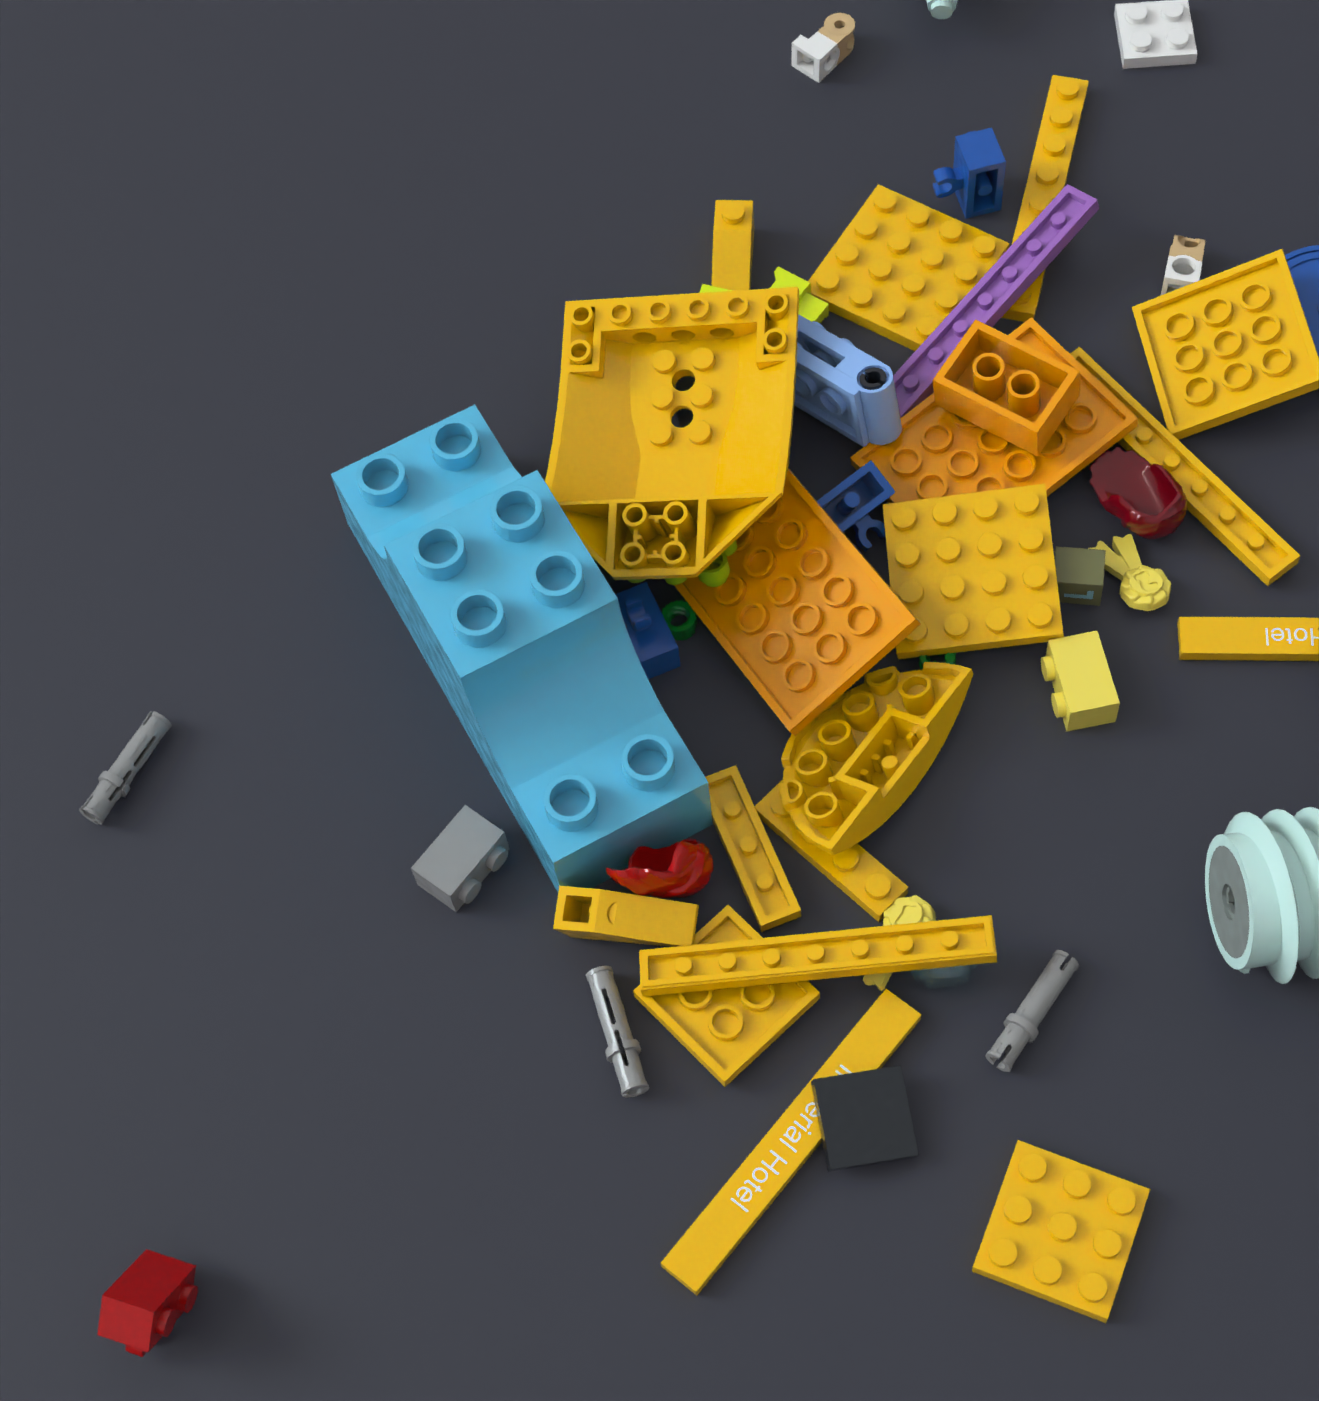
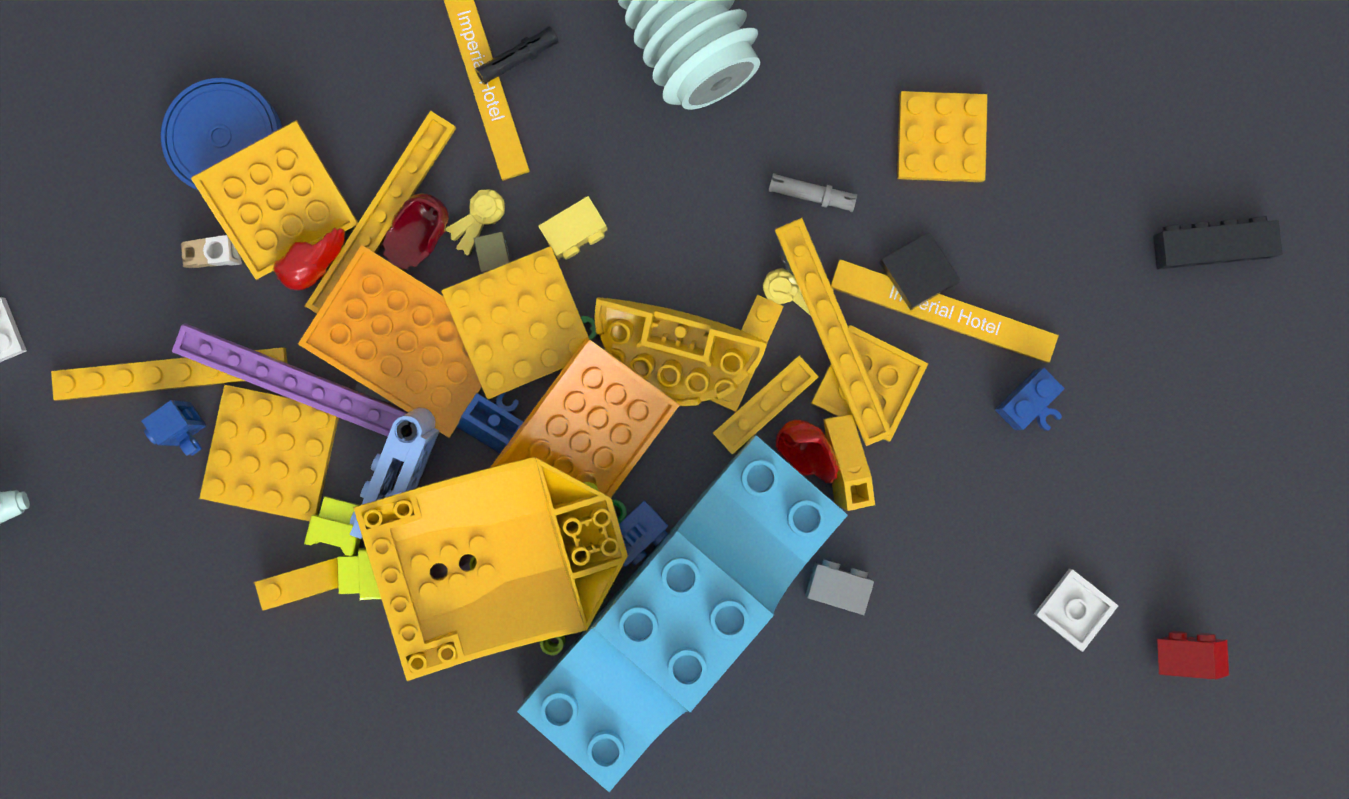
camera: 125 degrees left, 25 degrees up
(289, 1170) = (1076, 609): none -> white plate
(613, 1209) = (1031, 401): none -> blue brick
(630, 1077) = (917, 442): light grey pin -> none
(826, 48) = (78, 581): white leg -> none
(1006, 387) = (371, 339): light orange brick -> none
(1129, 357) = (308, 262): none -> red hair

